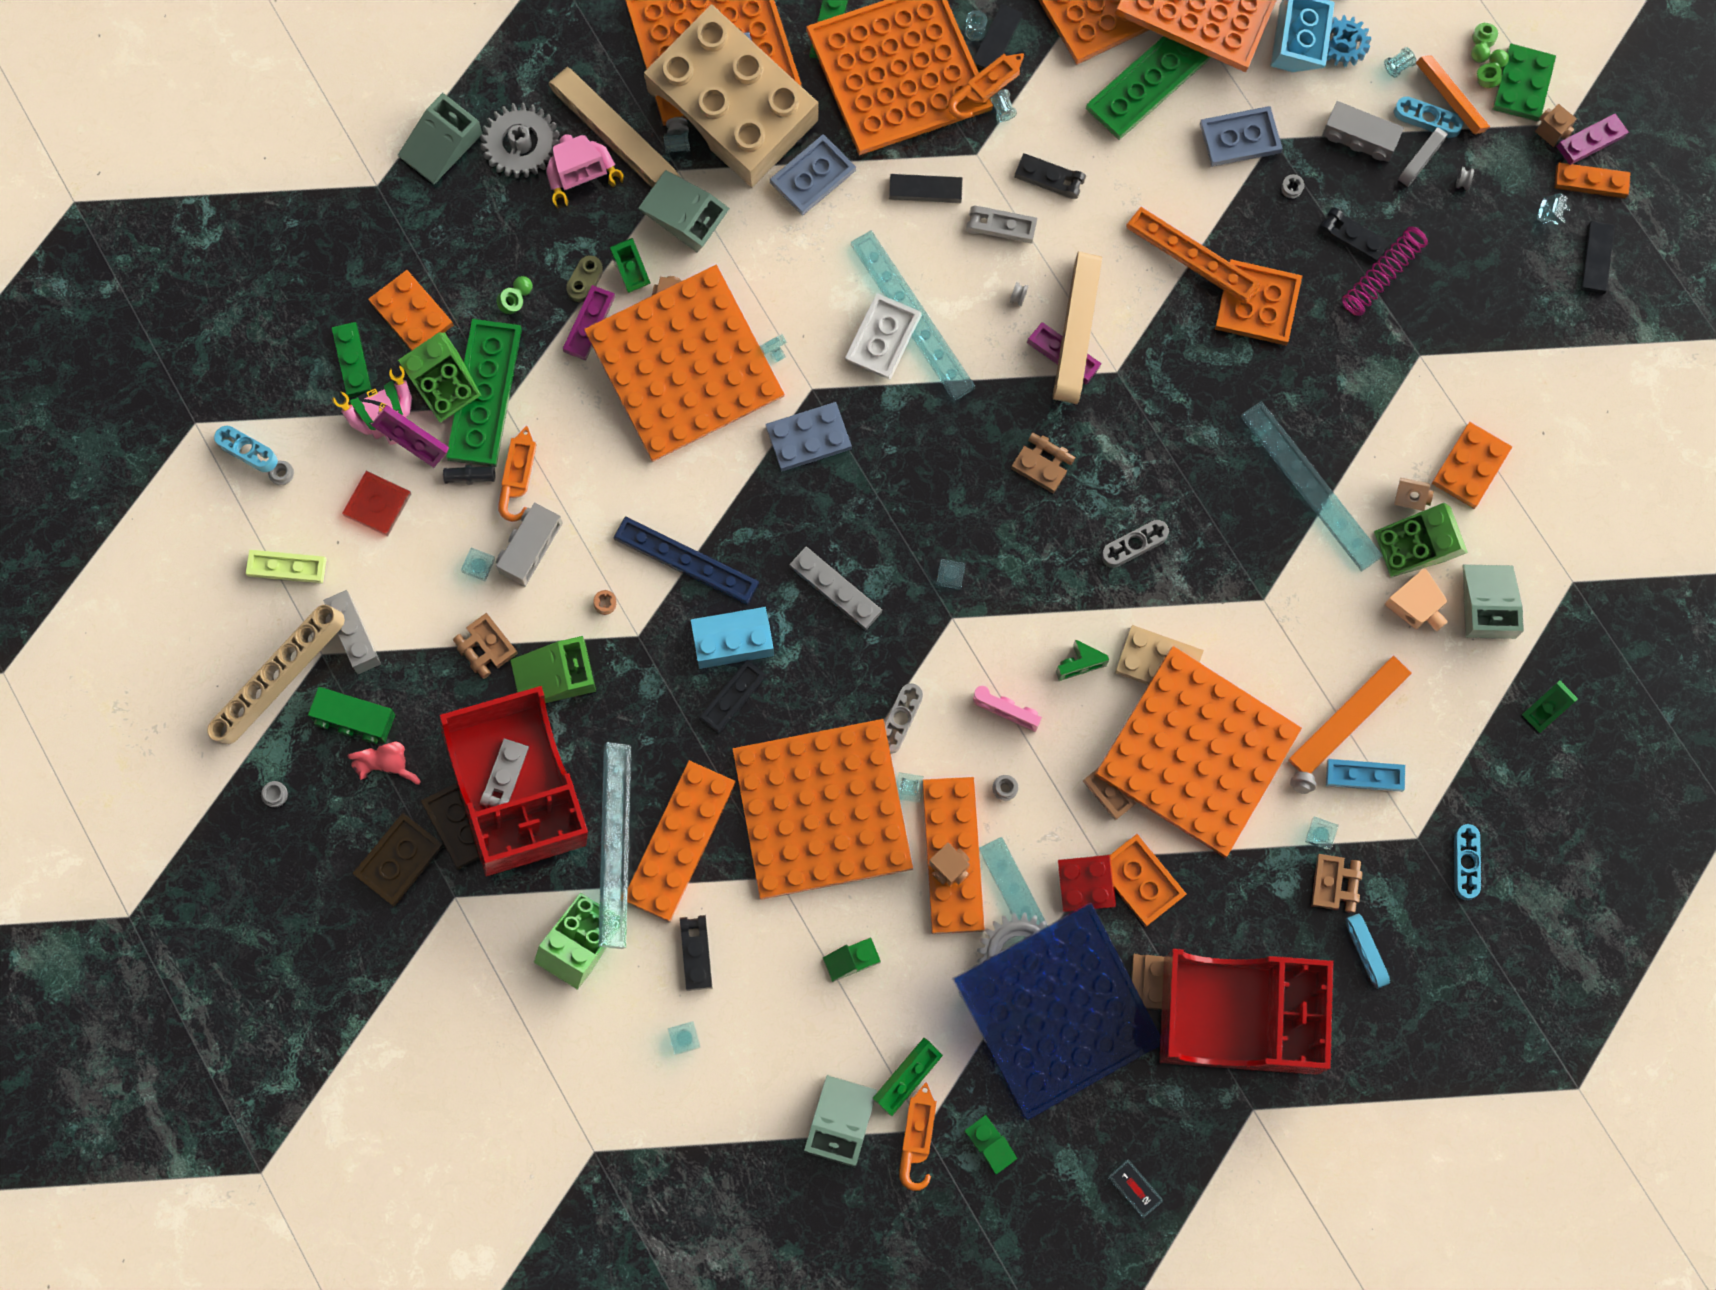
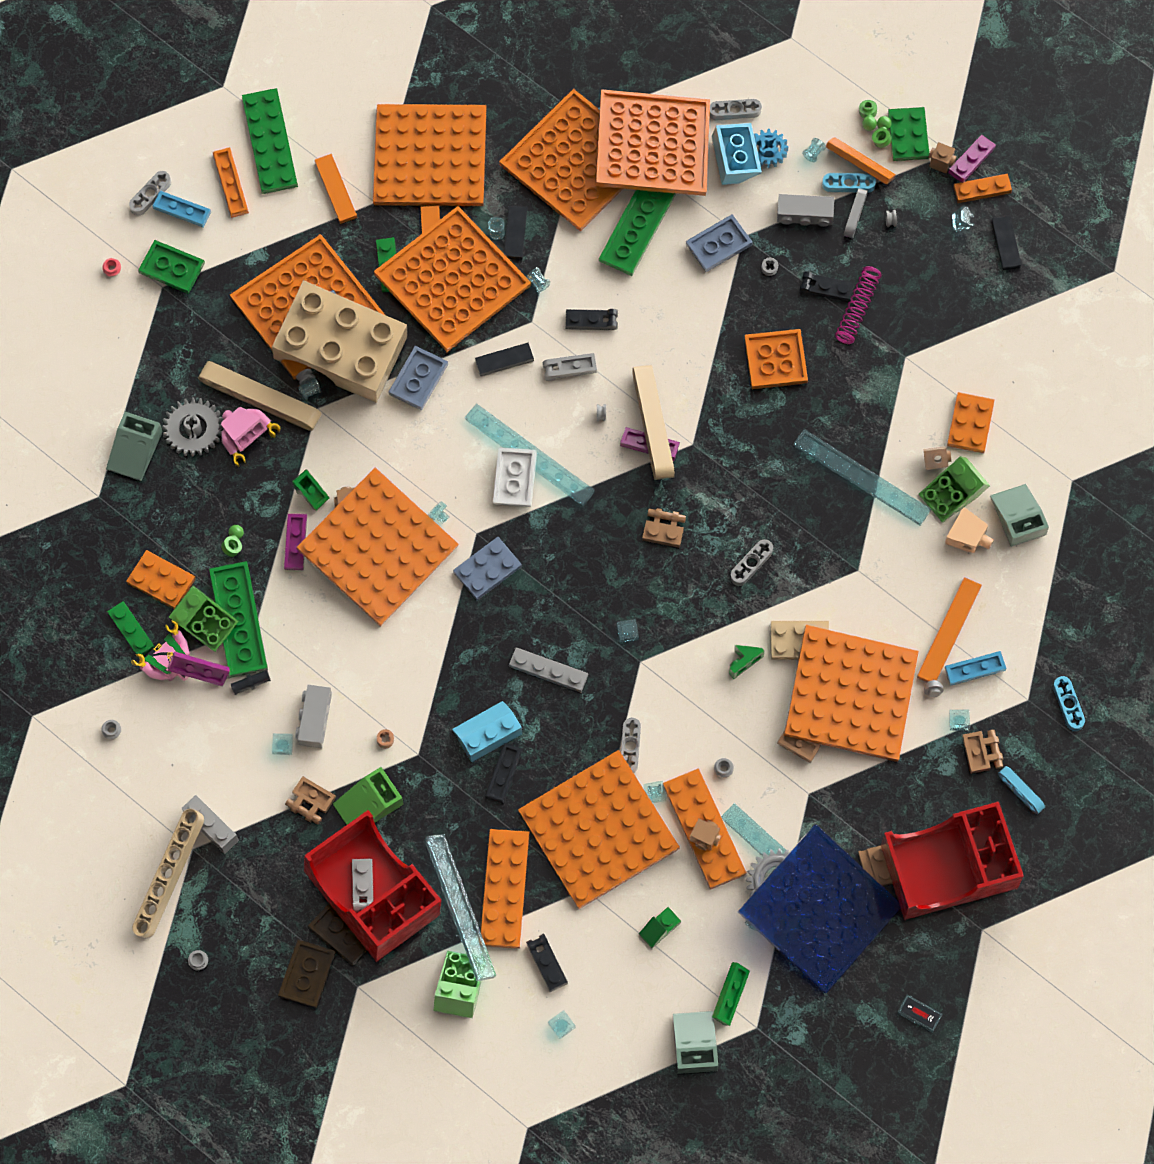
camera: 15 degrees left, 5 degrees down
(240, 440) = (72, 715): medium azure beam -> none
(286, 566) = (142, 795): yellowish green plate -> none
(351, 715) = (232, 884): green brick -> none
(376, 503) = (190, 726): clear red tile -> none
(386, 758) = (271, 905): coral animal -> none
(517, 472) = (285, 668): orange plate -> none
(584, 277) = (279, 510): olive plate -> none
(683, 210) = (335, 436): sand green slope -> none
(686, 560) = (432, 688): dark blue tile -> none
(917, 1136) = (753, 1032): orange plate -> none
(987, 83) = (521, 267): orange plate -> none
(991, 1144) = (807, 1020): green slope -> none
(1005, 708) = (703, 711): bright pink plate -> none
(1086, 882) = (806, 811): red plate -> none
(1143, 881) = (844, 798): orange plate -> none
(1193, 255) = (716, 341): orange tile -> none
(1550, 706) = (1087, 574): green slope -> none

